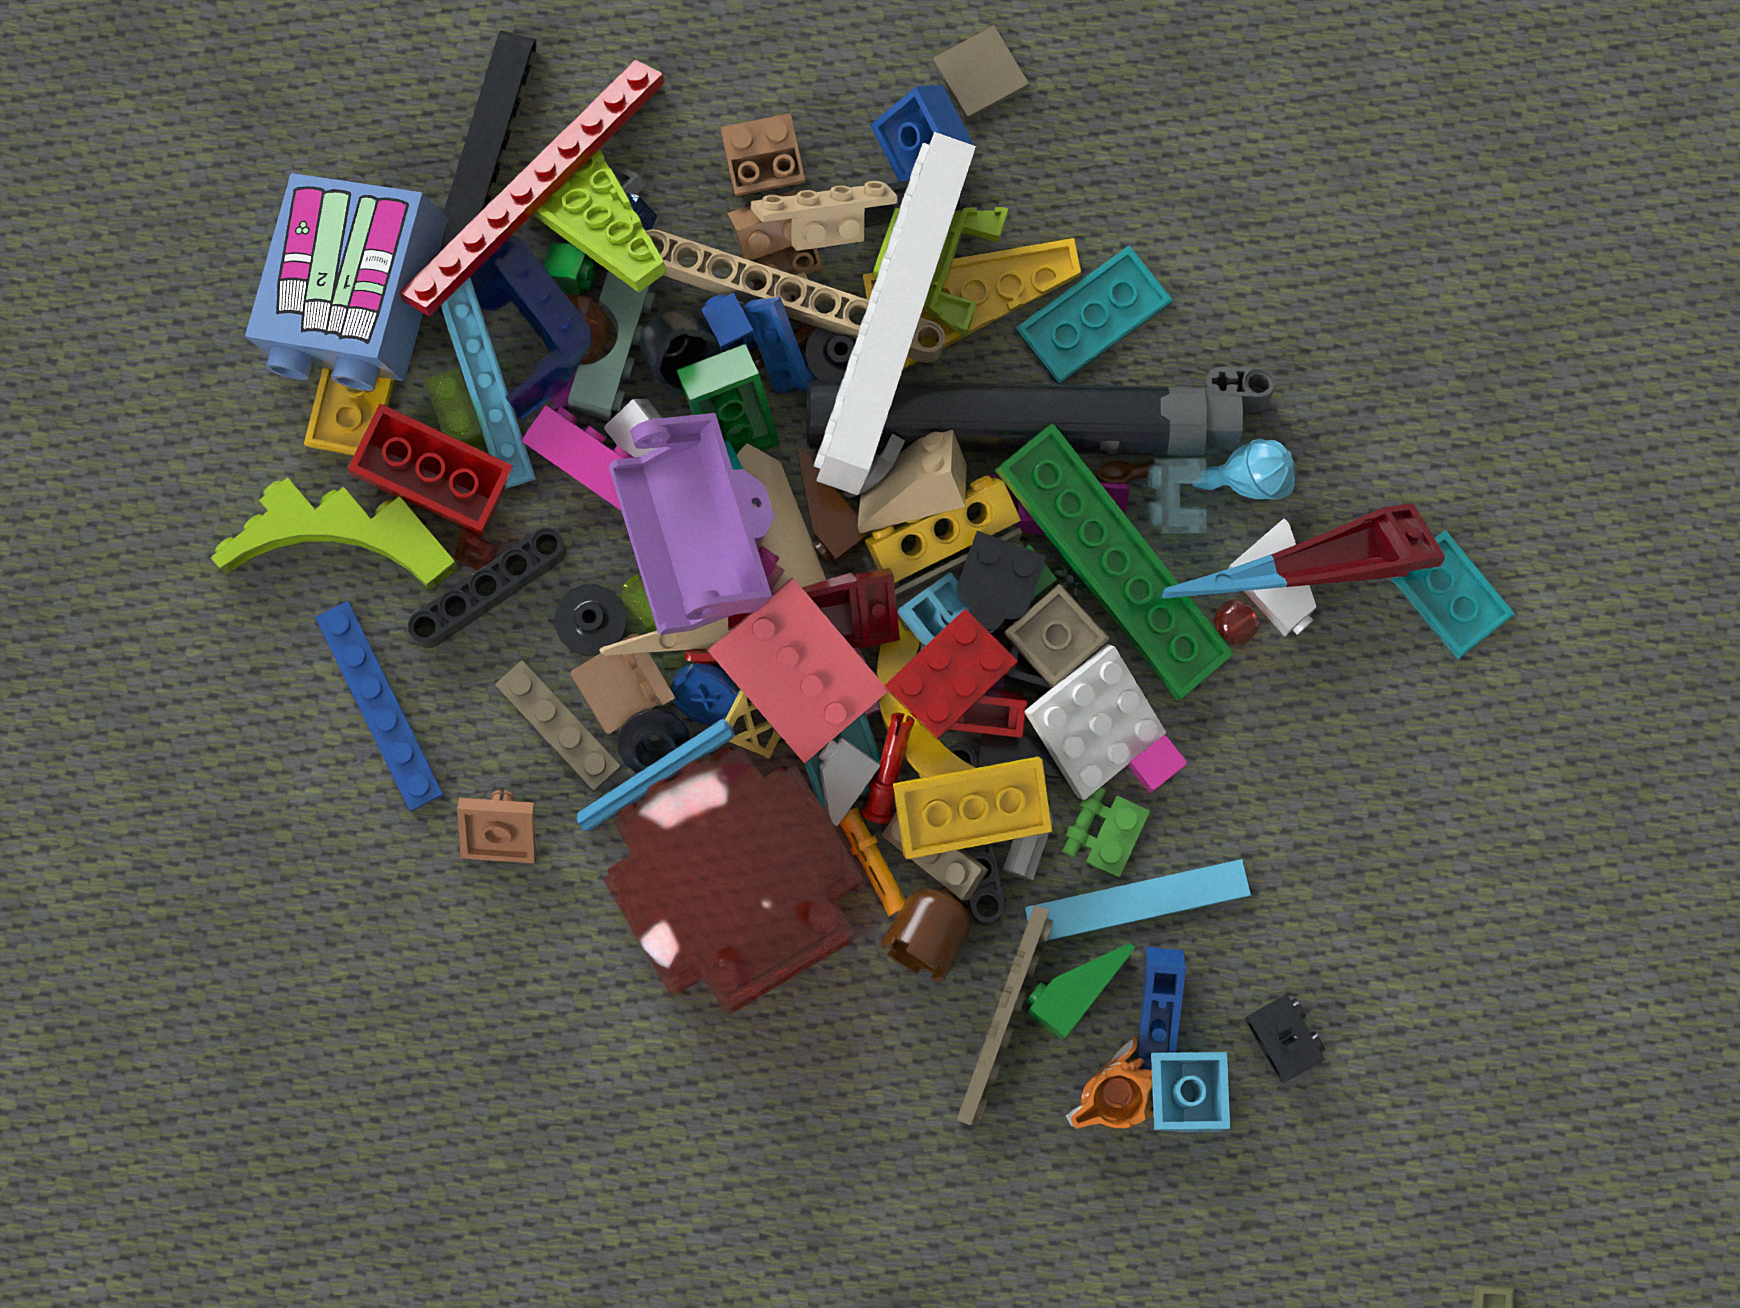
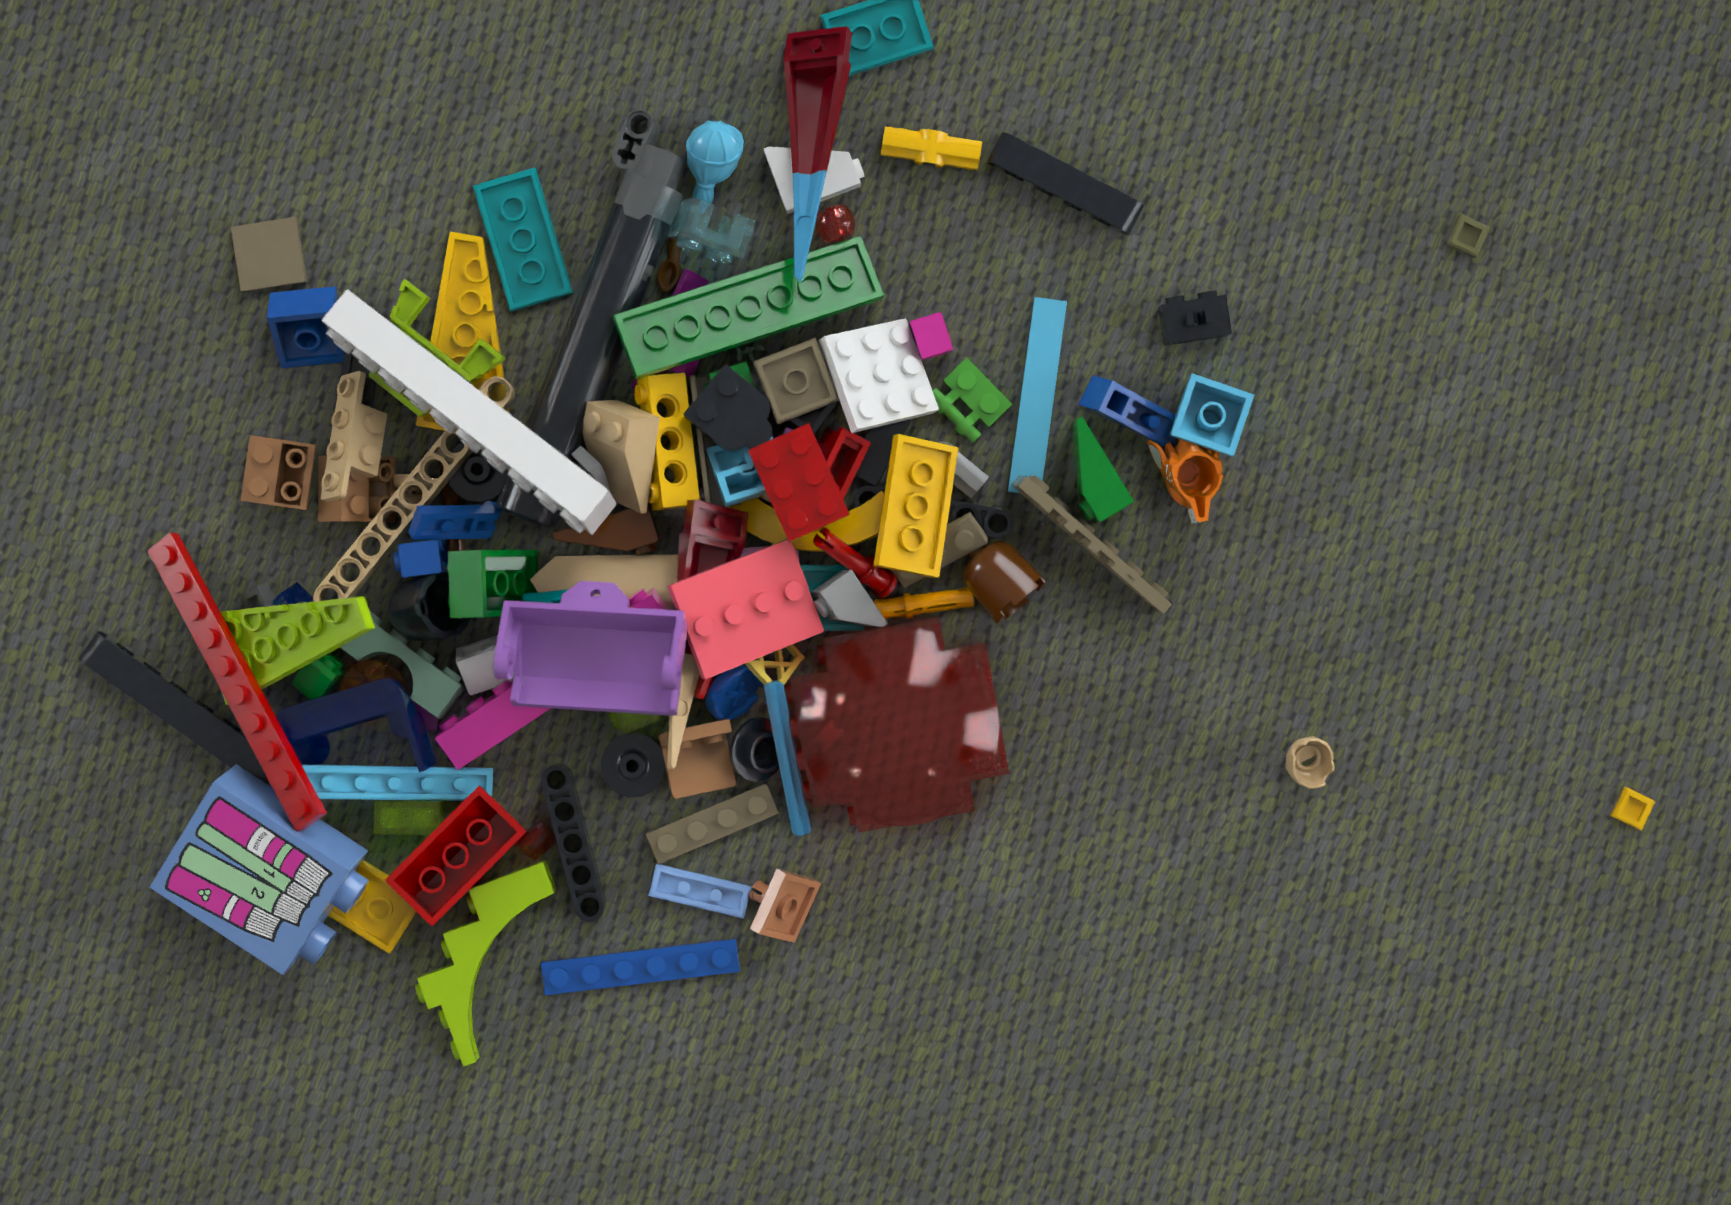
camera: 70 degrees left, 10 degrees up
(481, 738) = (699, 890): none -> light blue tile
(1354, 693) = (931, 147): none -> yellow piece
(1375, 847) = (1066, 182): none -> black beam

